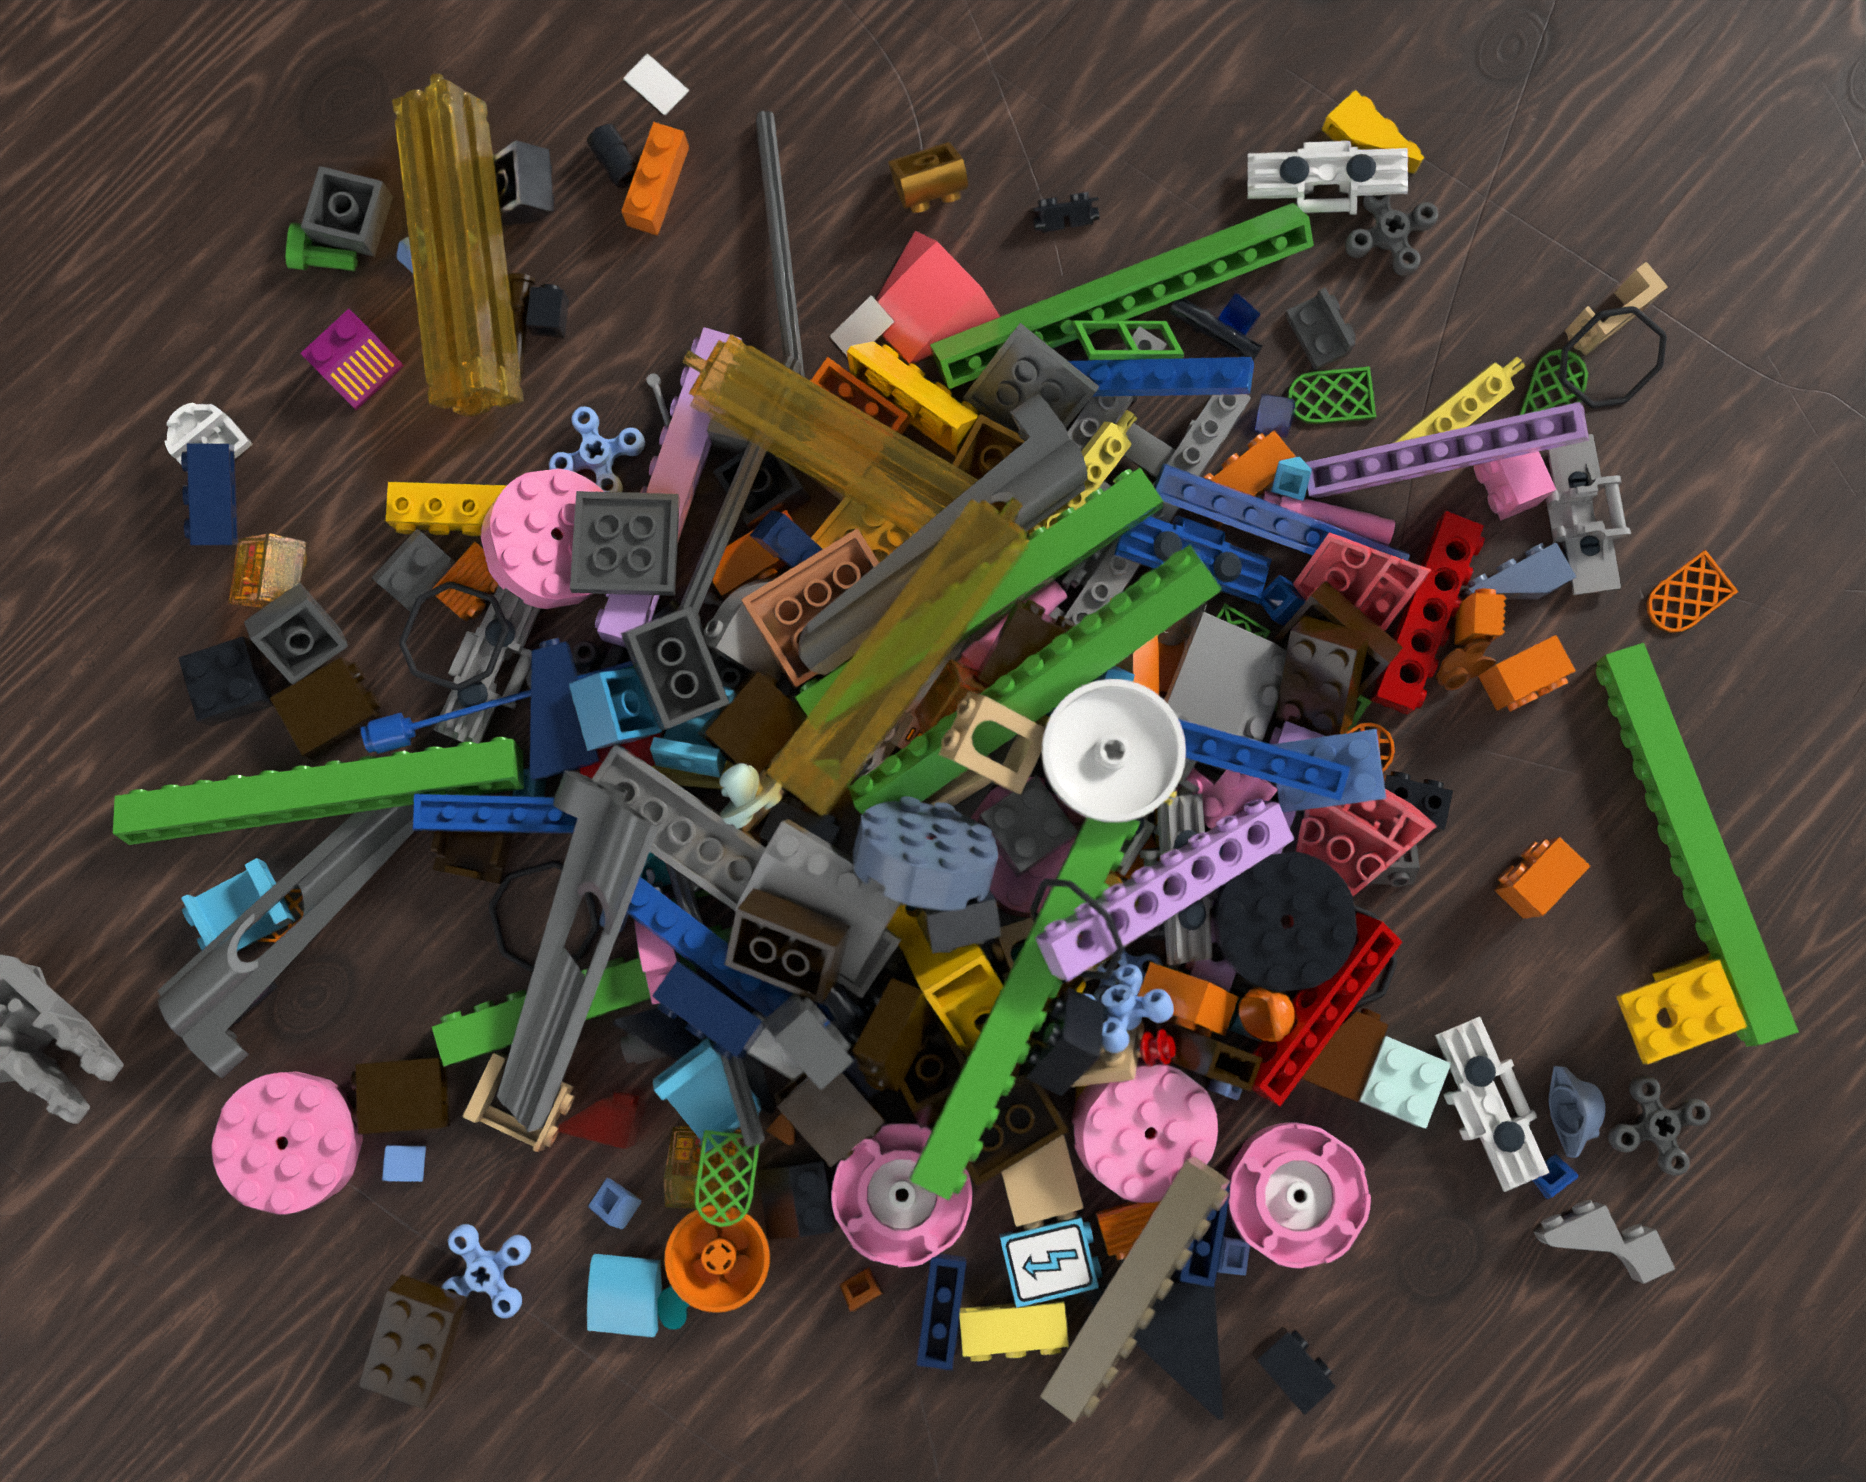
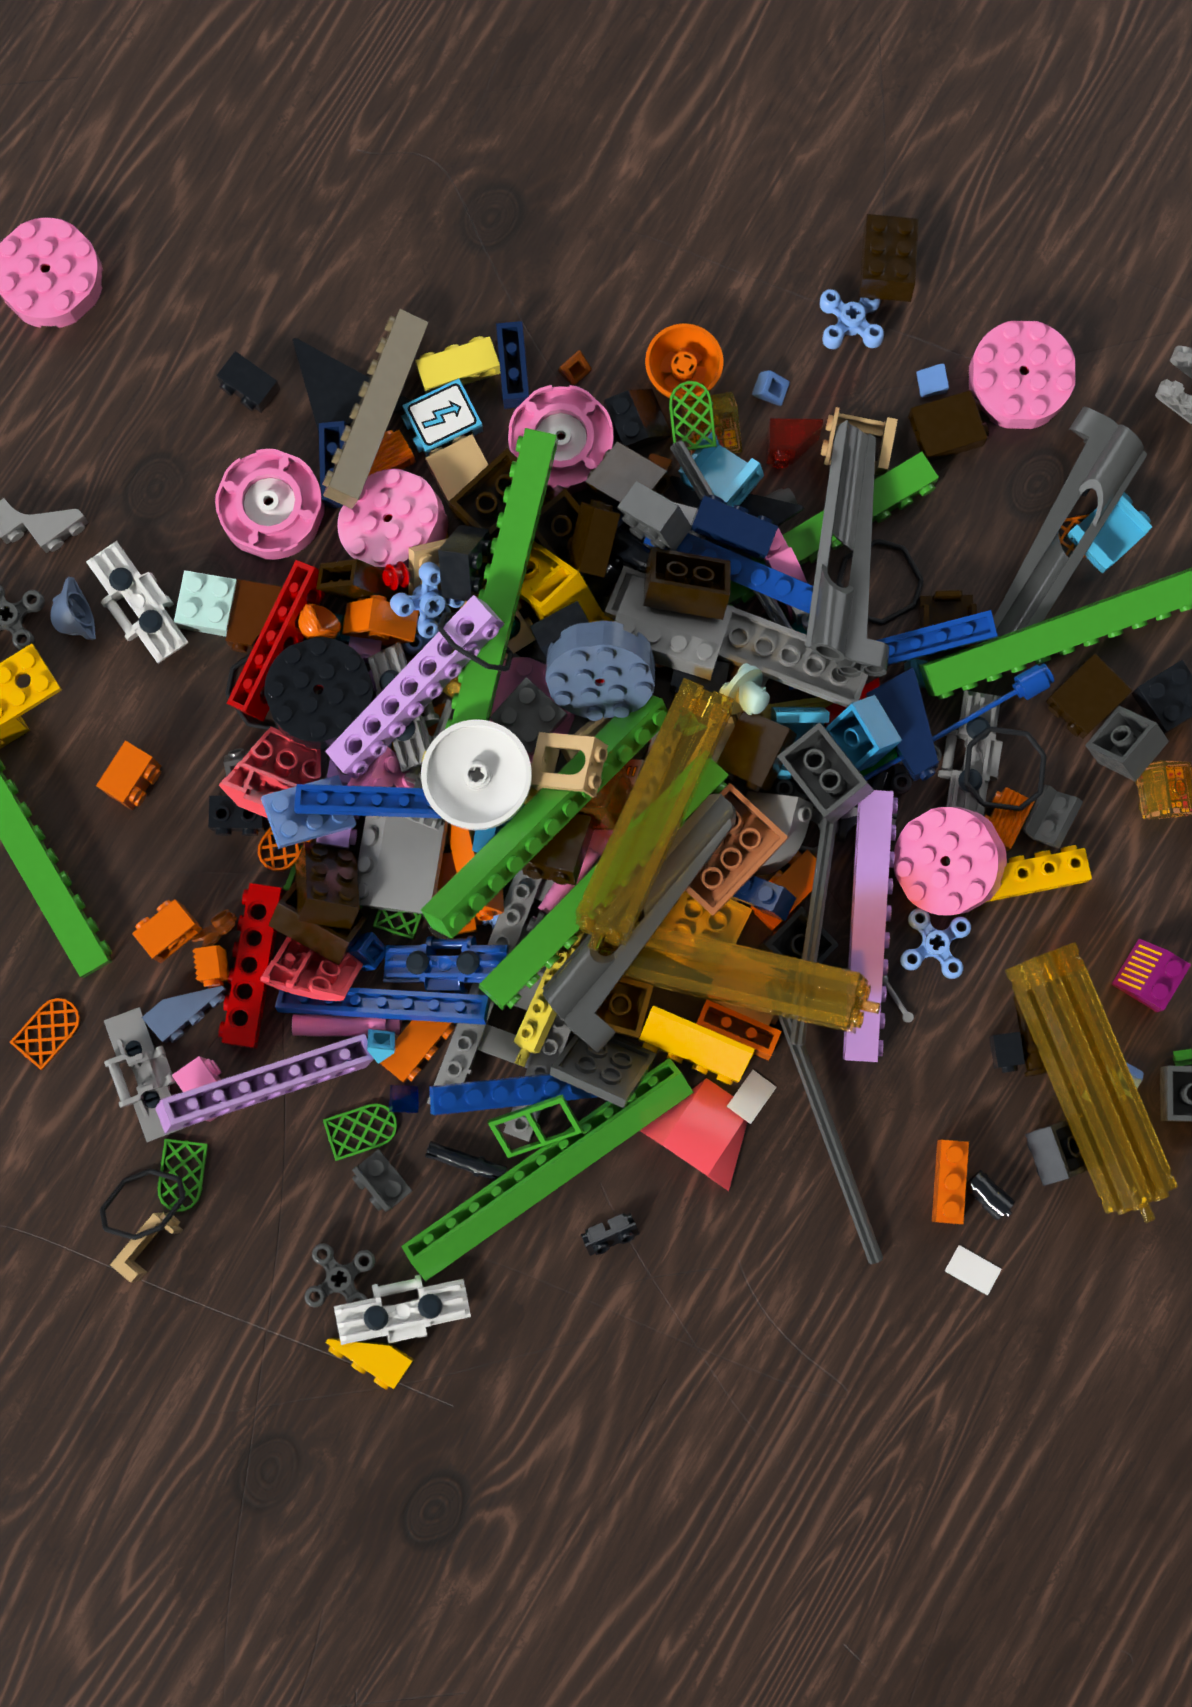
camera: 165 degrees right, 0 degrees up
(623, 1295) = (746, 324): medium azure slope -> none
(625, 543) = (890, 863): dark grey plate -> none
(672, 1309) = (711, 323): teal tile -> none
(929, 176) = (729, 1236): pearl gold brick -> none
(1233, 1256) = (309, 452): medium blue slope -> none
(1240, 314) = (450, 1175): clear blue slope -> none
(1468, 402) = (257, 1139): light yellow plate -> none
(1558, 1178) = (77, 562): blue slope -> none

